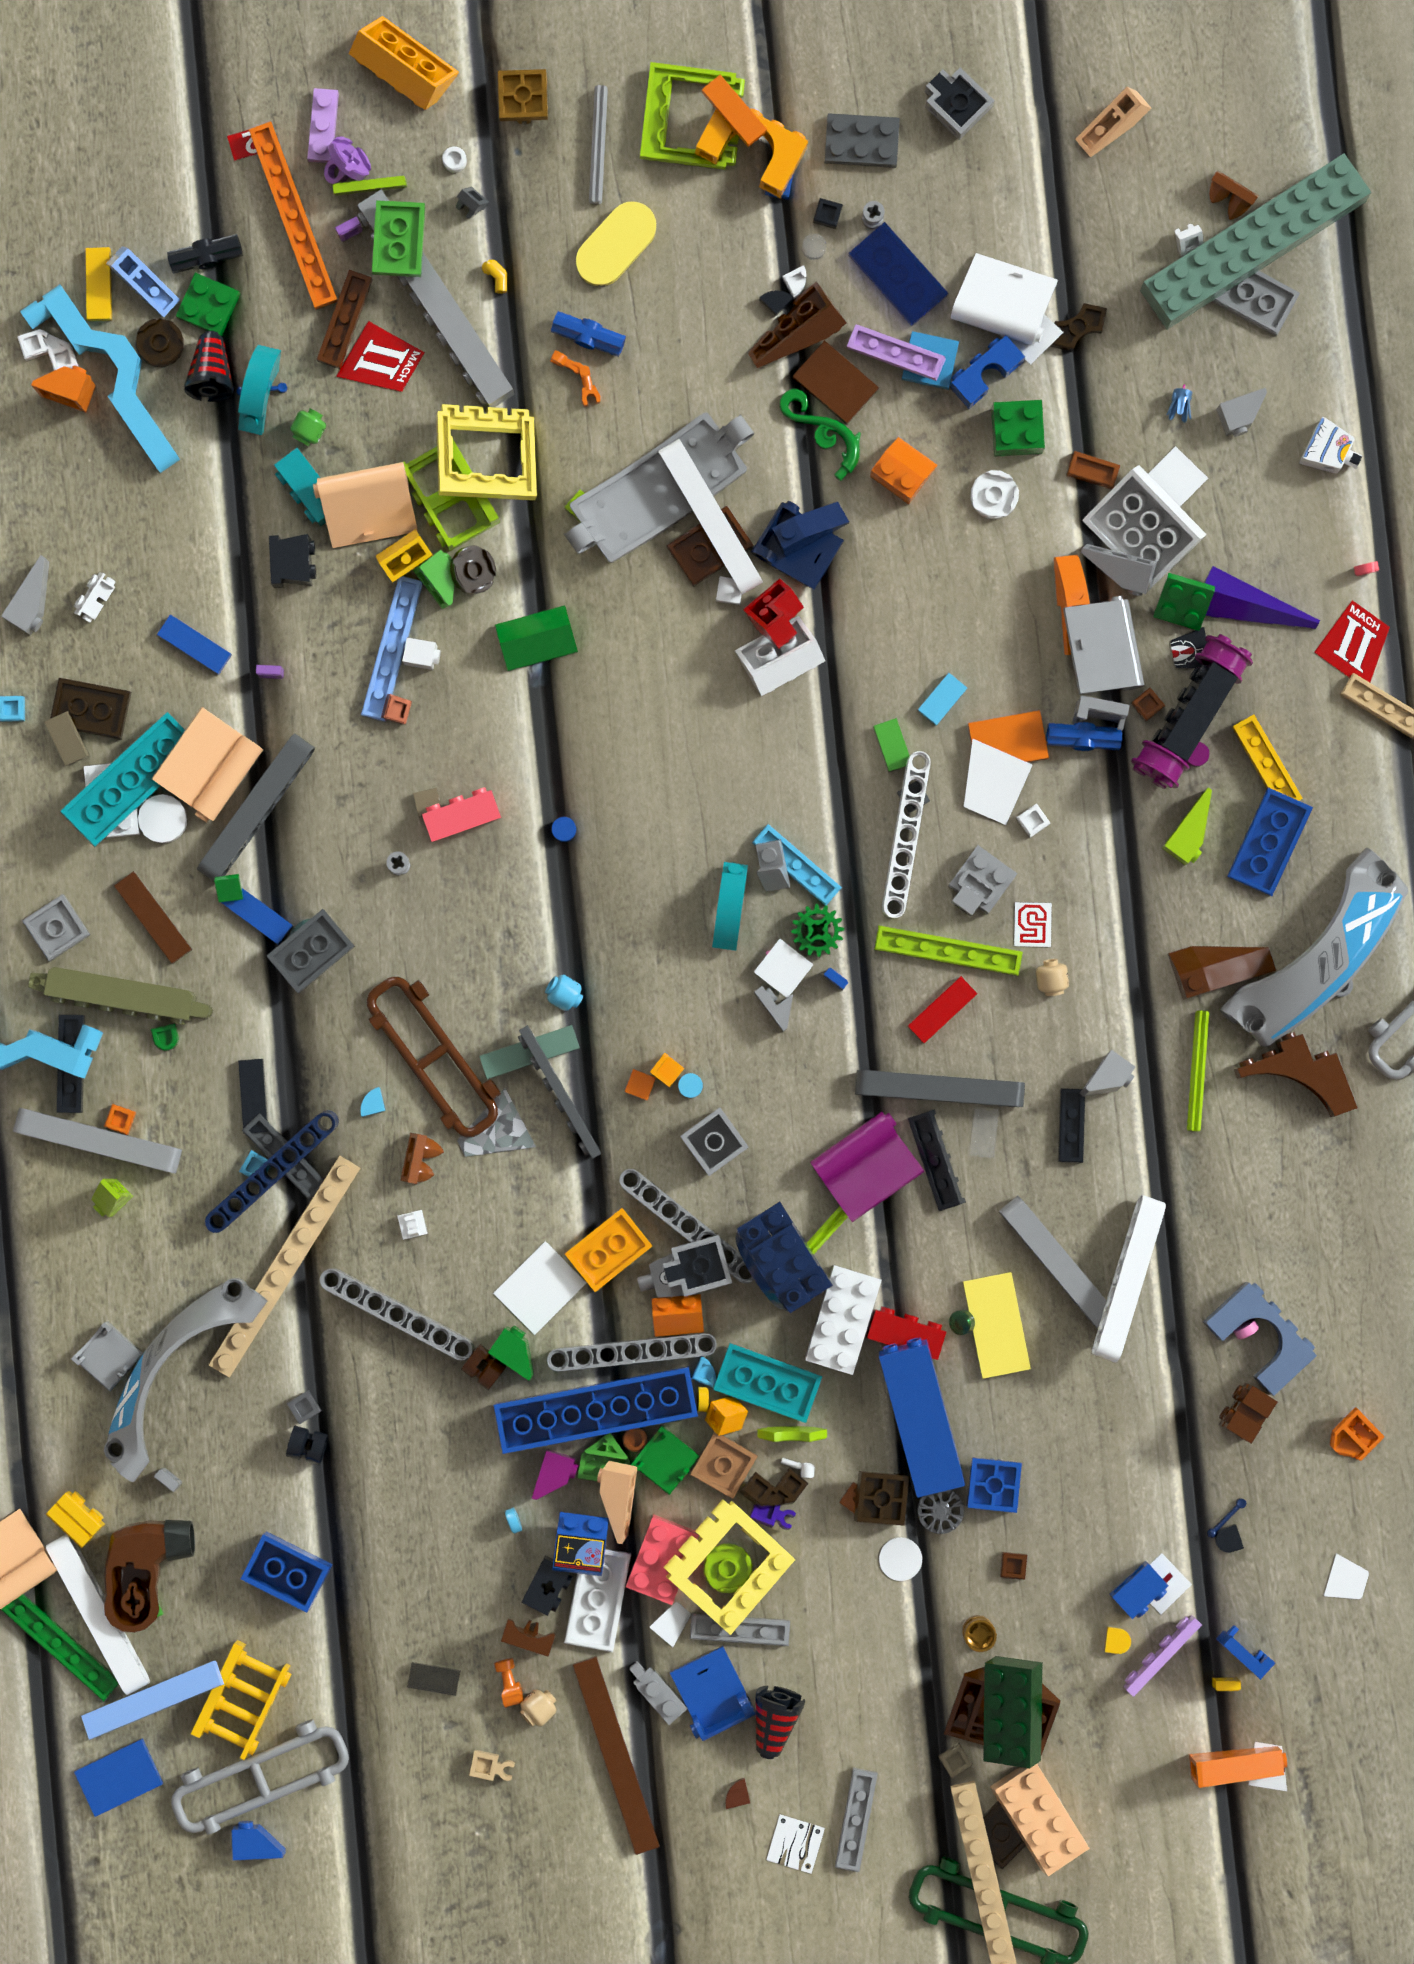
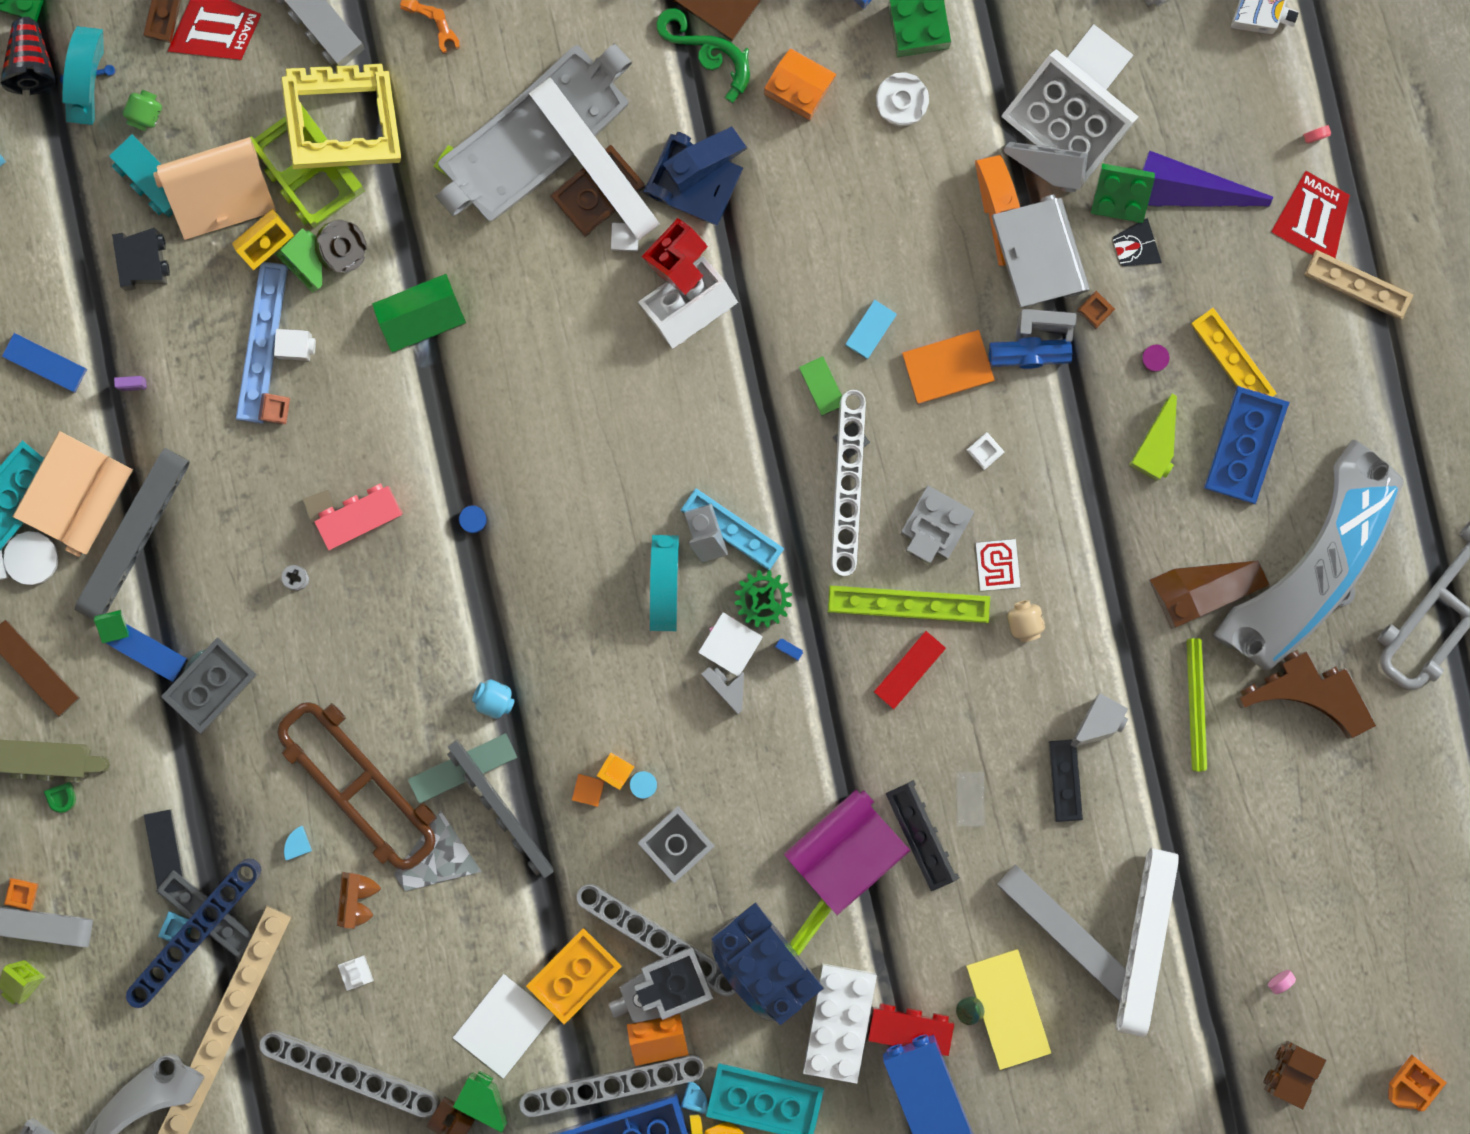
camera: 10 degrees left, 0 degrees up
(940, 1088) = (916, 756): dark grey beam -> none
(994, 781) = (937, 413): white sticker -> none
(1093, 470) = (1007, 60): dark orange tile -> none
(1197, 706) = (1150, 307): brick -> none
(1292, 1351) = (1335, 1001): sand blue arch -> none

